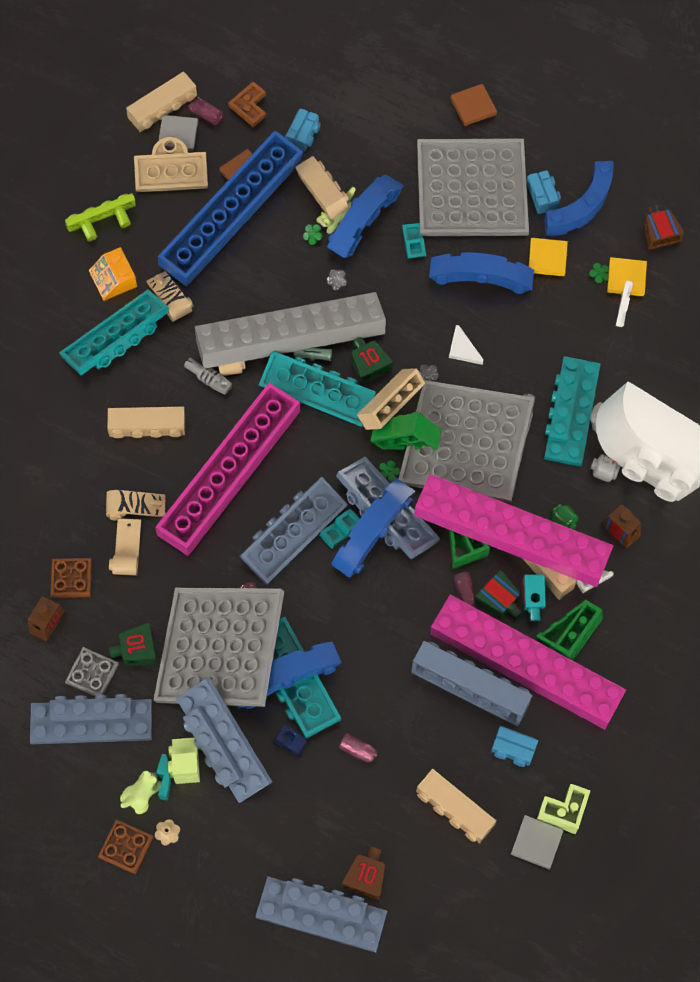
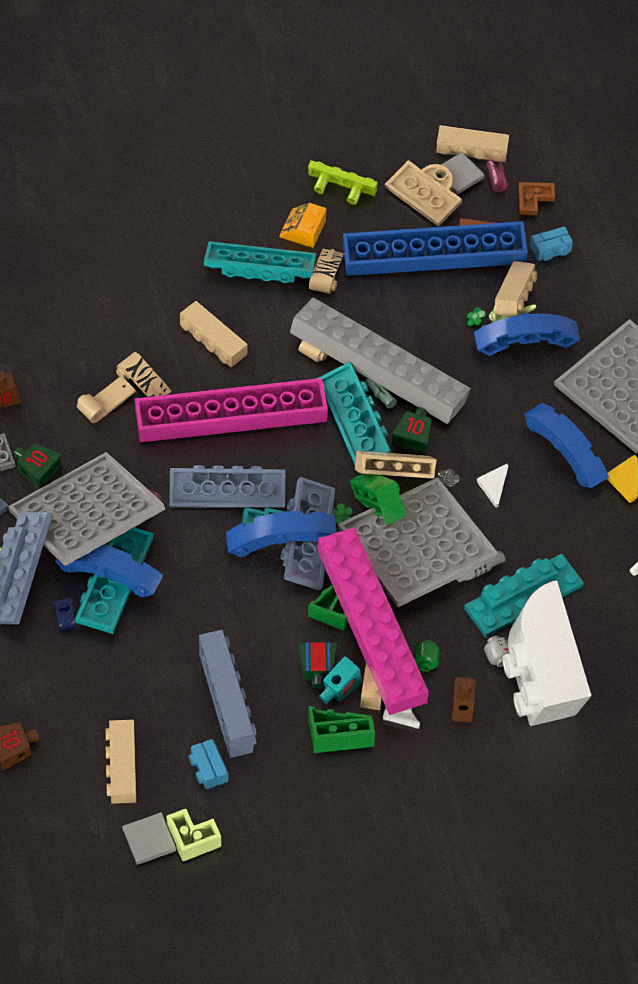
camera: 45 degrees right, 10 degrees down
(71, 578) = (49, 386): dark orange tile -> none
(209, 376) = (290, 344): light grey hinge -> none
(336, 279) = (457, 360): clear plant -> none
(357, 748) = (102, 662): clear pink hinge -> none
(413, 241) = (544, 385): teal slope -> none
(465, 587) = (299, 635): clear pink hinge -> none
(527, 661) = (285, 721): dark pink brick -> none

